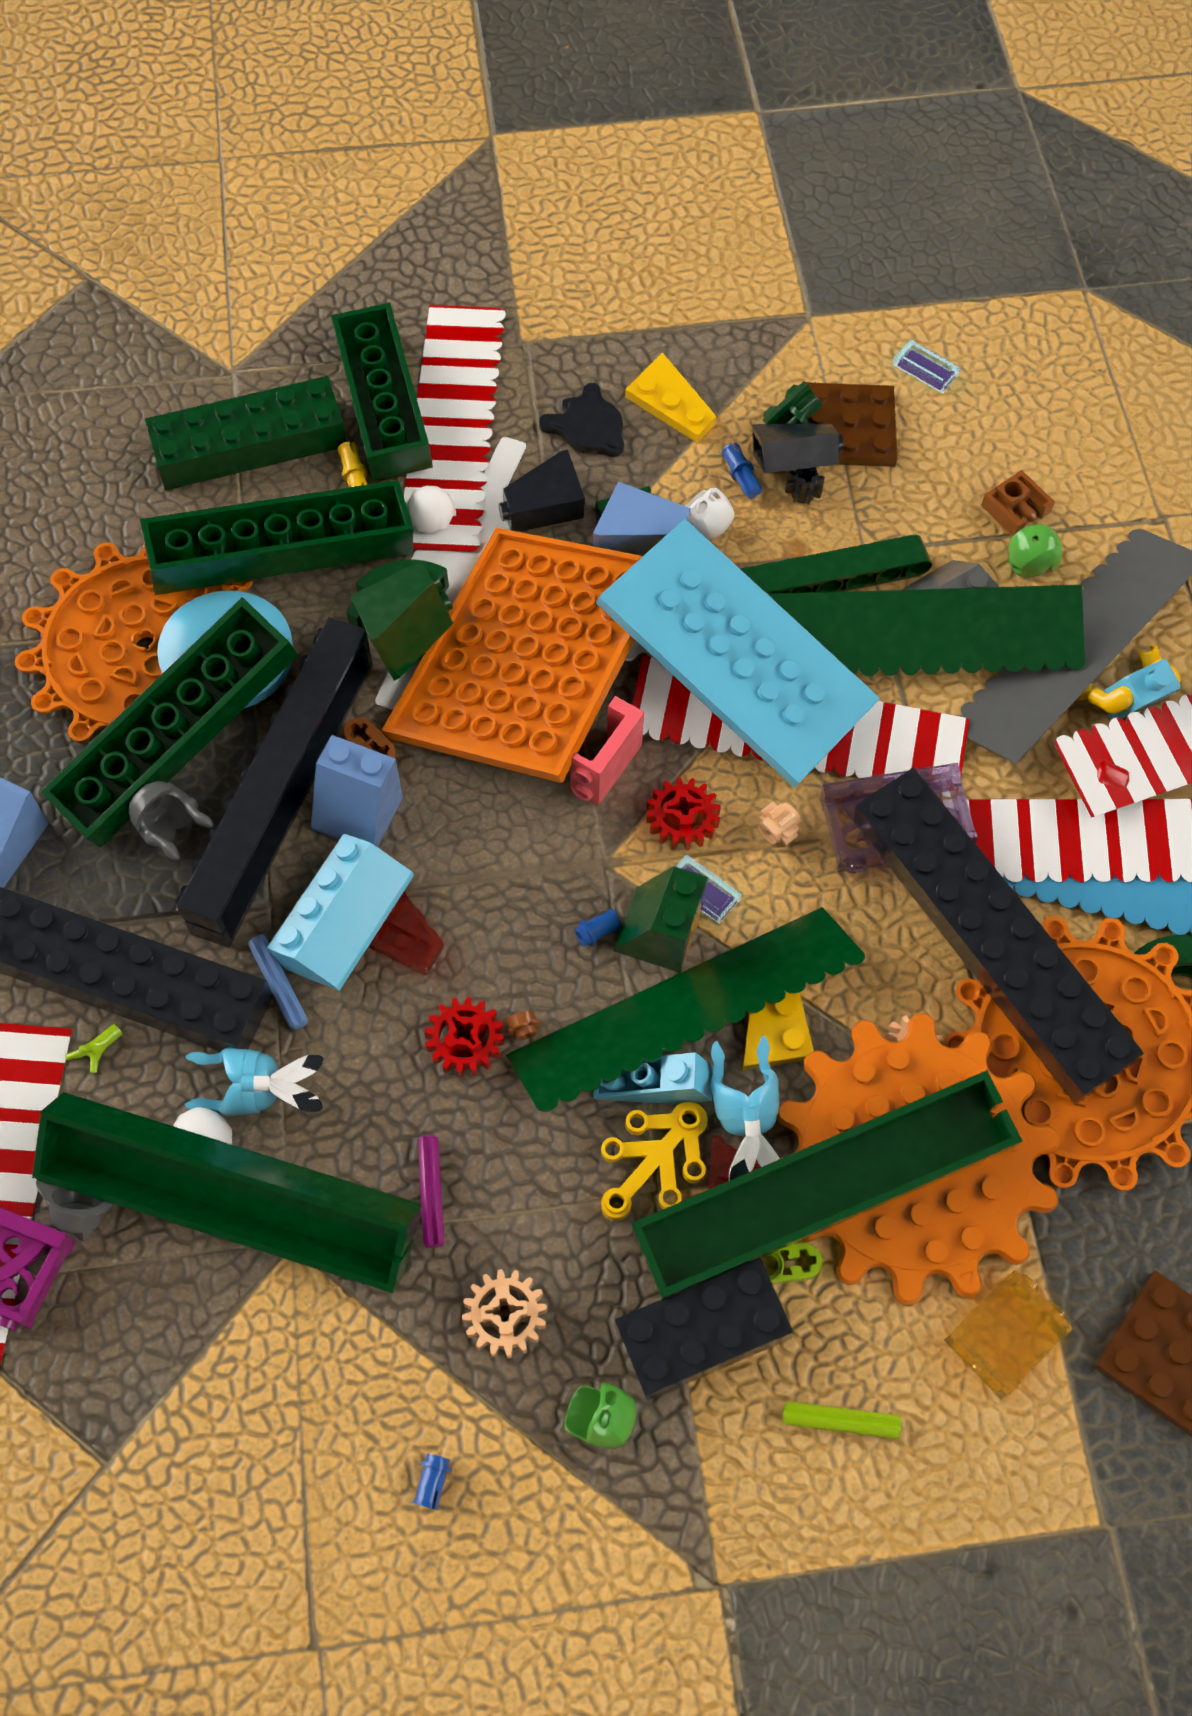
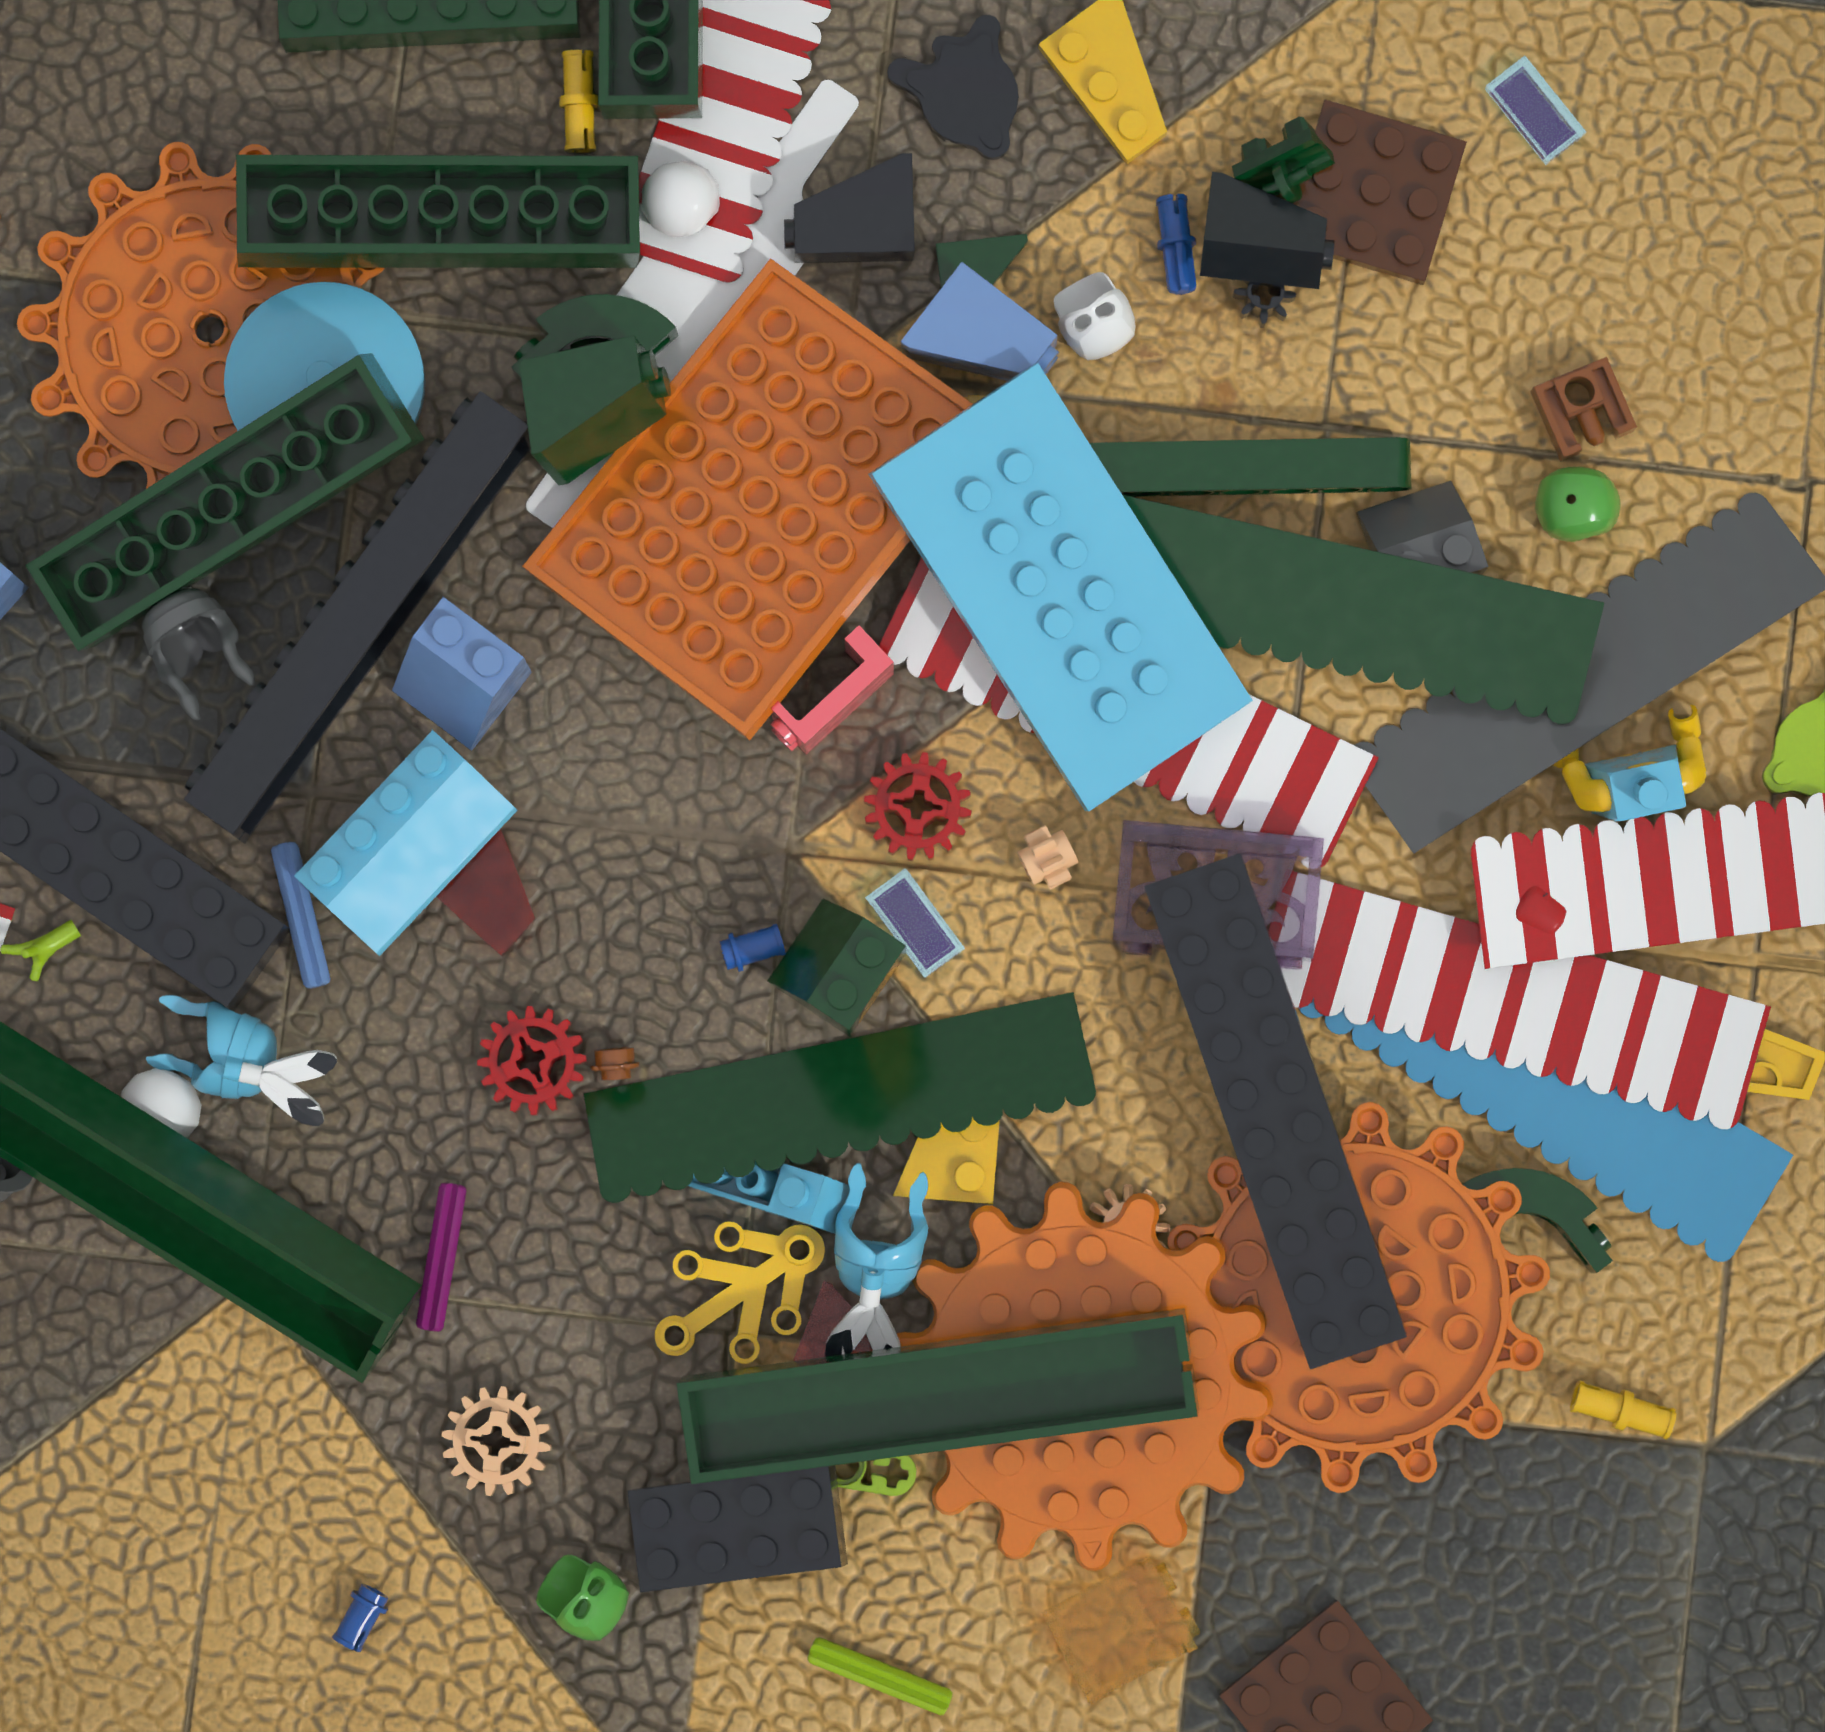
camera: 15 degrees right, 20 degrees up
(374, 737) = (492, 587): dark orange beam -> none

